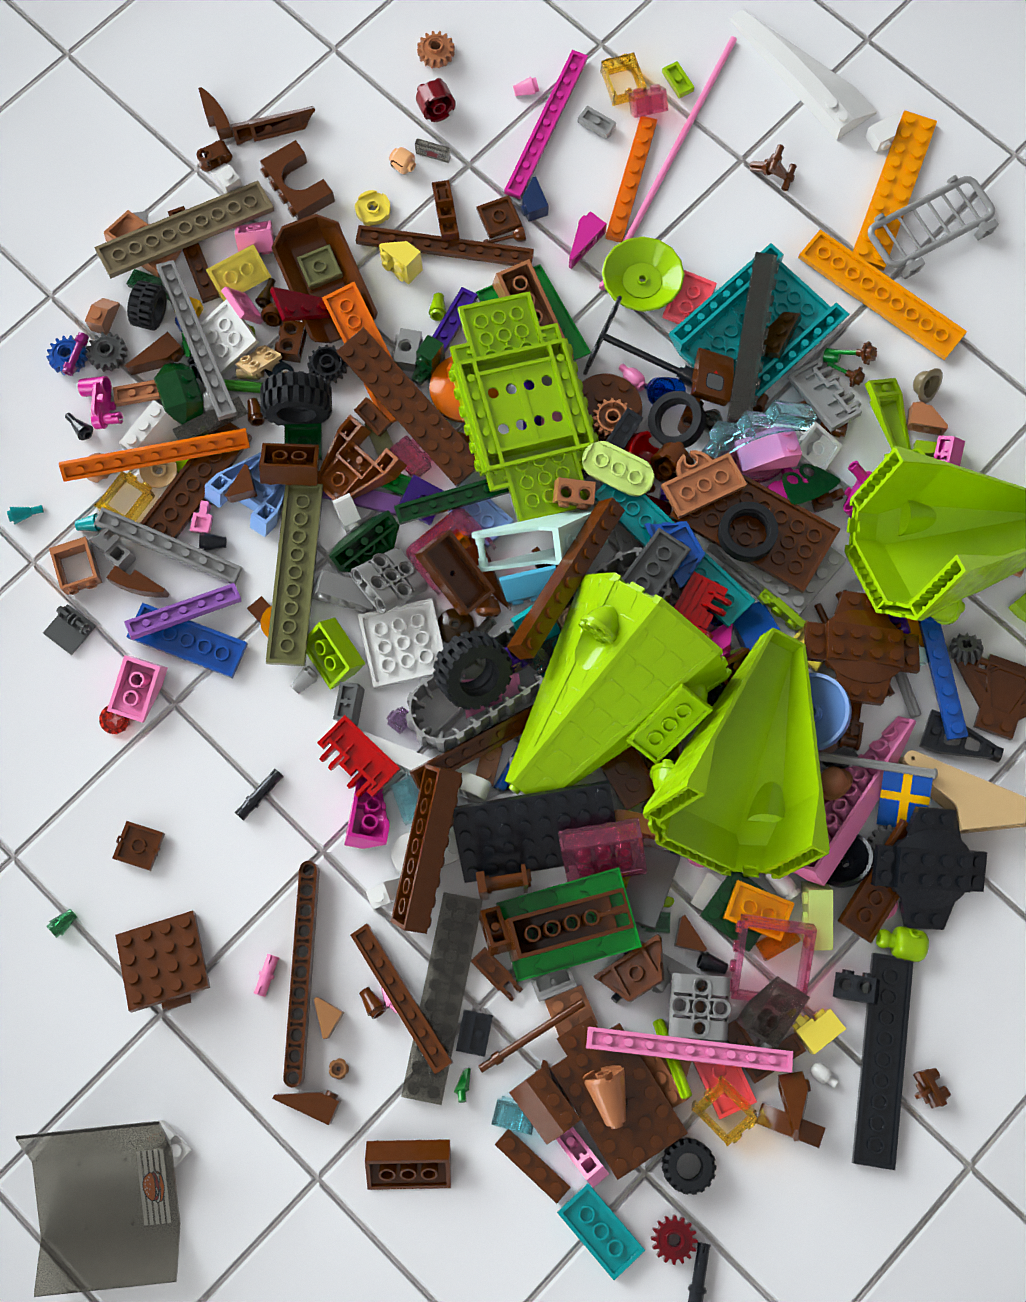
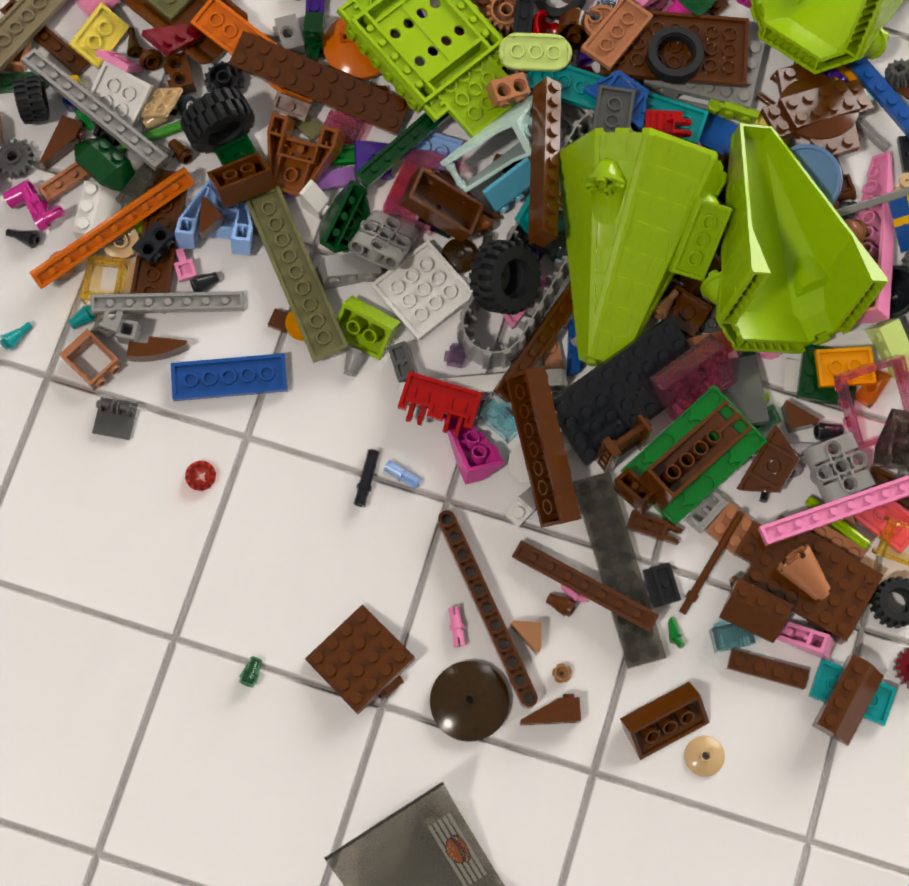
camera: 30 degrees left, 0 degrees up
(136, 688) = (207, 438): bright pink slope -> none
(138, 845) = (283, 573): reddish brown plate -> none
(182, 482) = (150, 241): none -> black brick
(182, 611) = (212, 353): medium lavender plate -> none
(259, 1045) = (473, 720): none -> dark brown dish
(293, 806) = (402, 474): none -> light blue axle
(429, 1206) = (697, 763): none -> tan dish
(590, 1238) = (848, 699): none -> reddish brown slope
(613, 767) = (664, 305): none -> medium nougat cone
(784, 887) = (852, 339): white piece -> none

